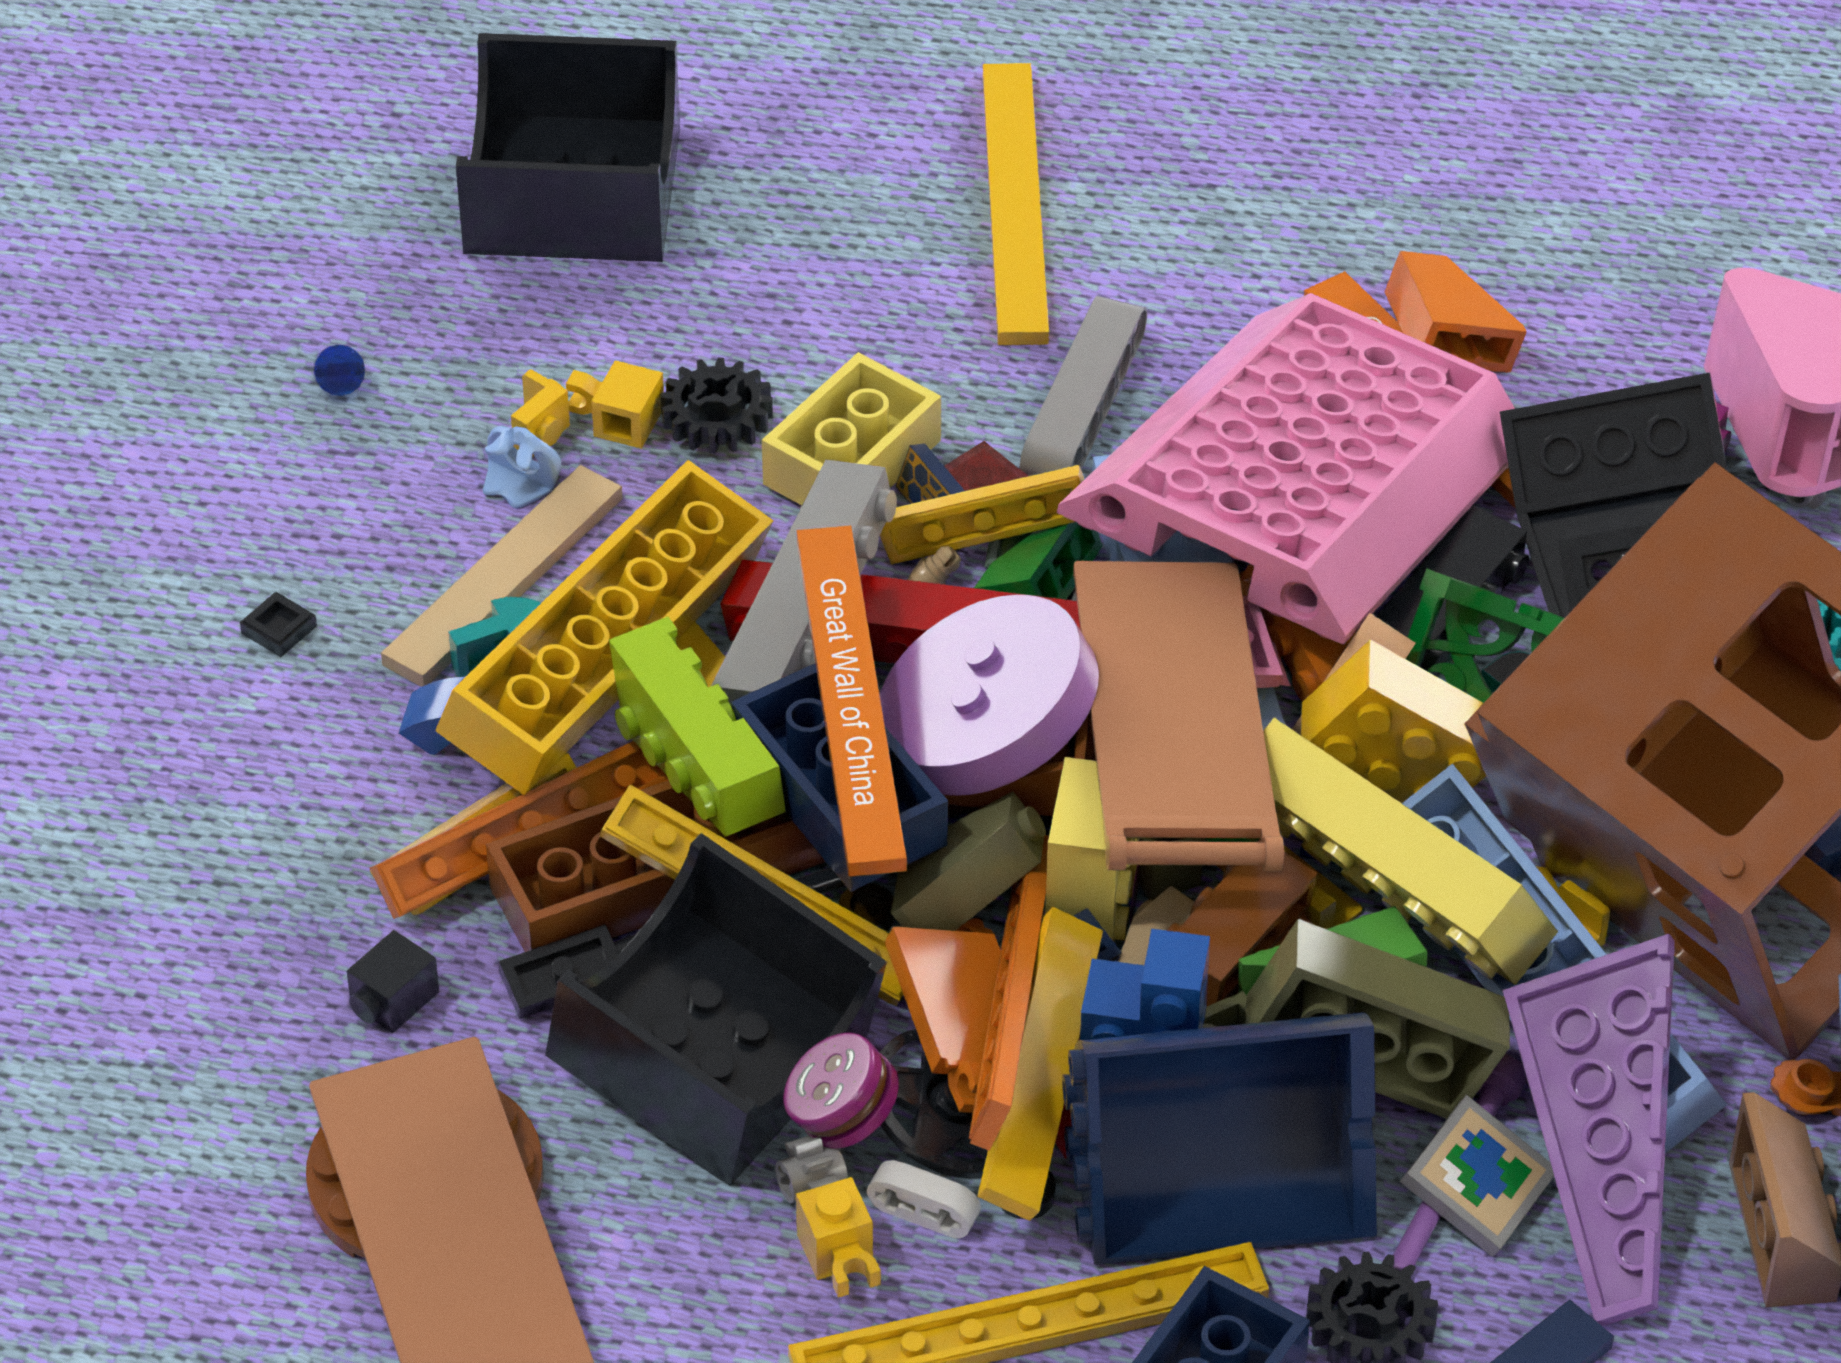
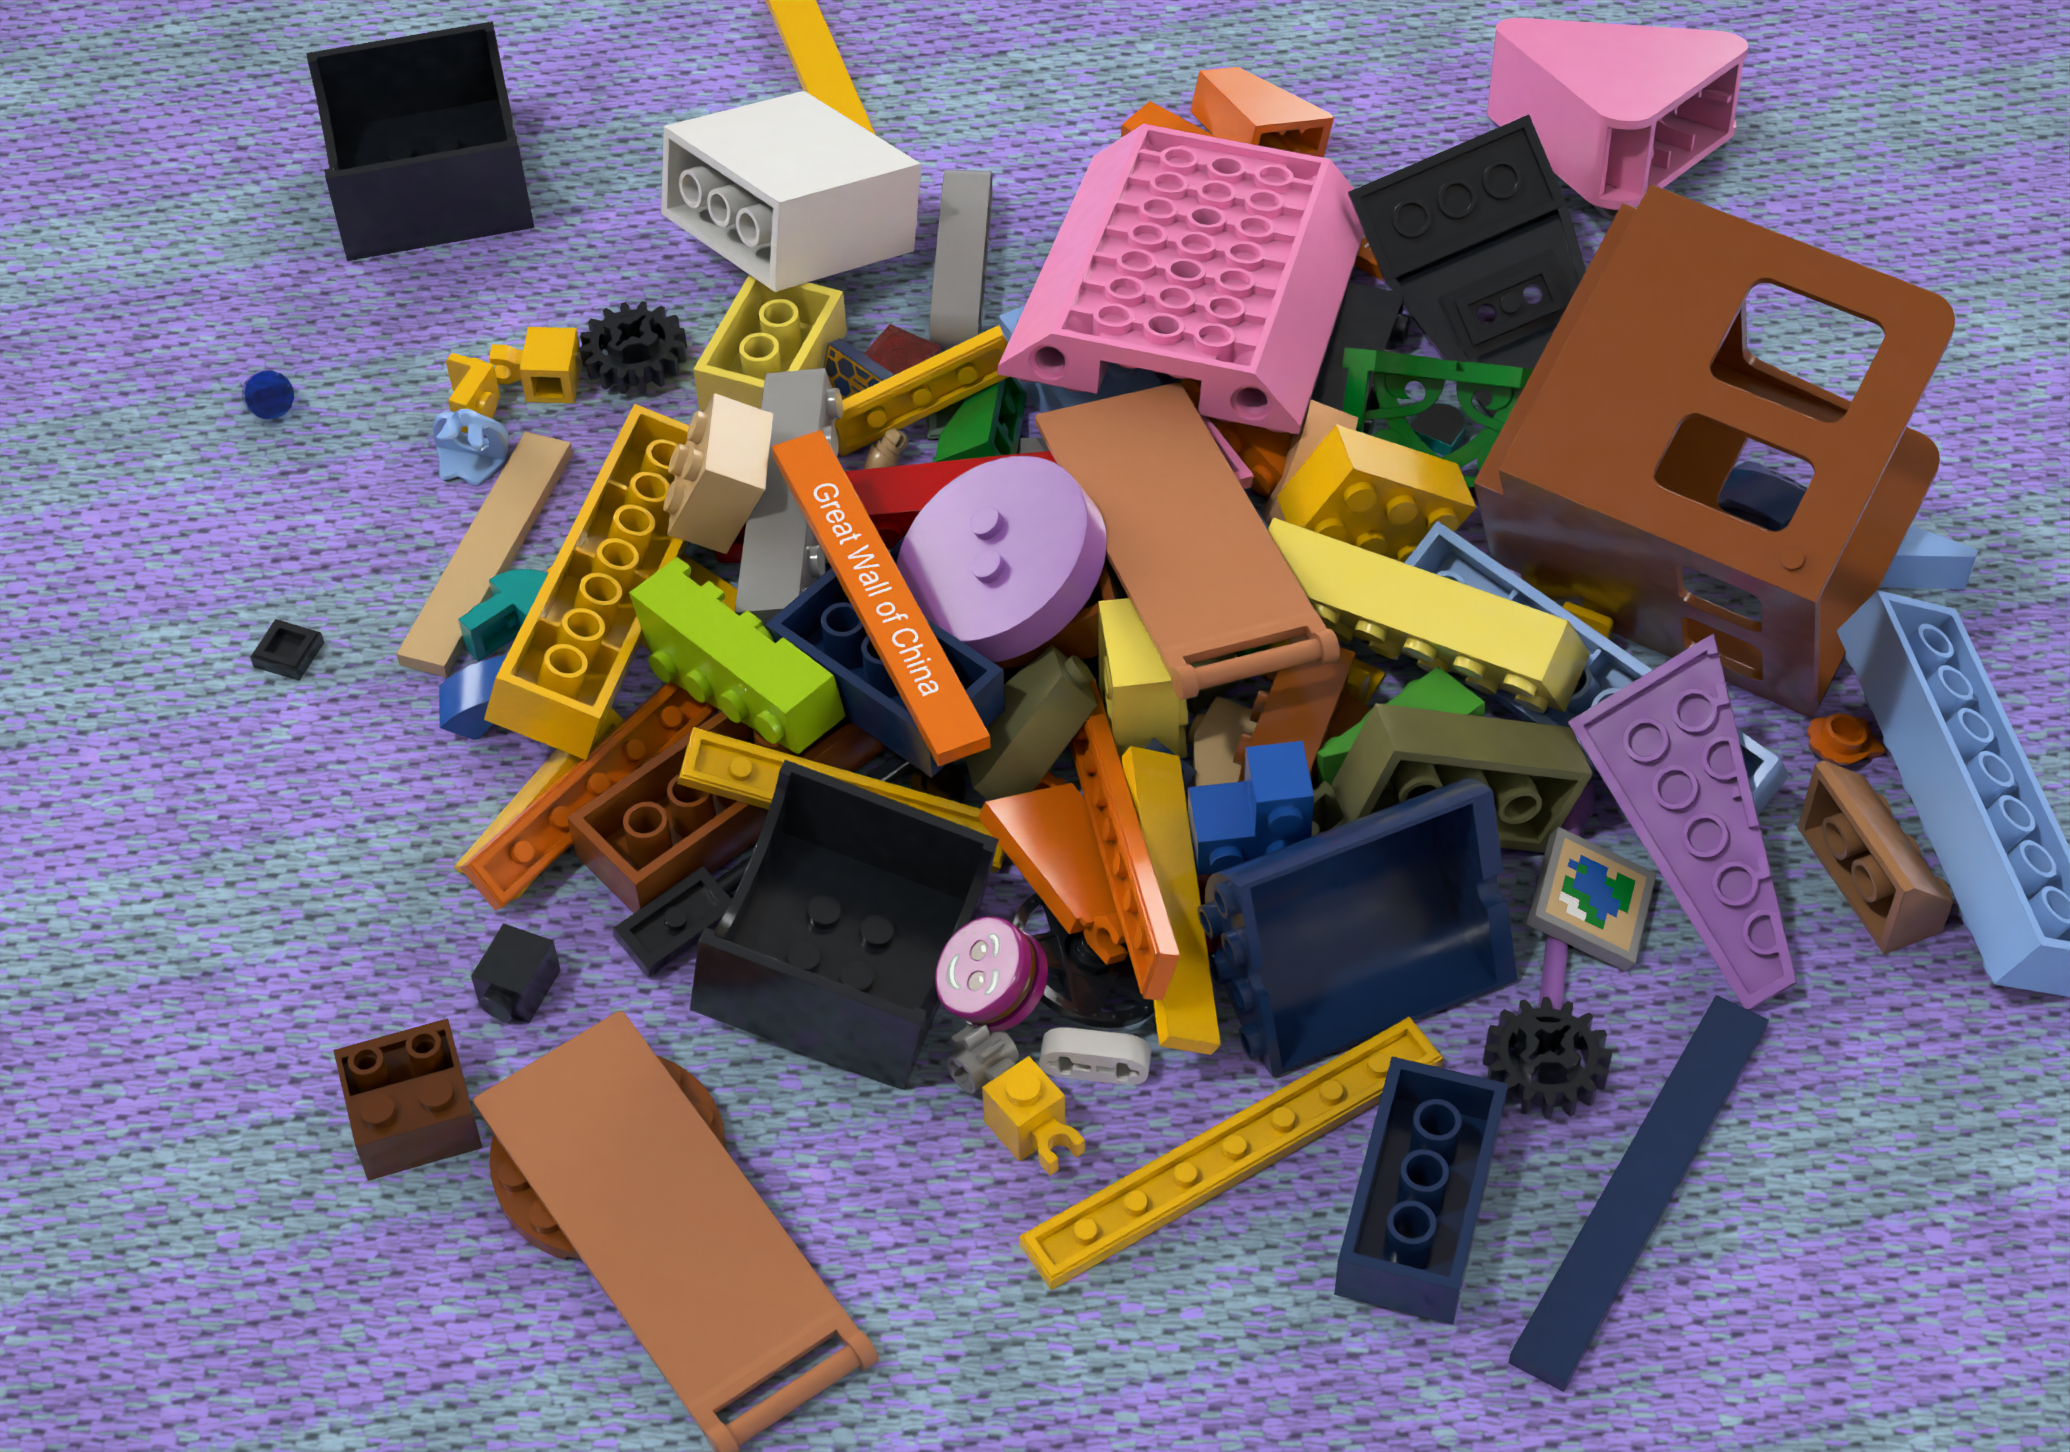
camera: 15 degrees left, 5 degrees up
(250, 1070) = (407, 1099): none -> reddish brown slope
(740, 546) = (718, 473): none -> tan brick
(922, 280) = (789, 189): none -> white brick

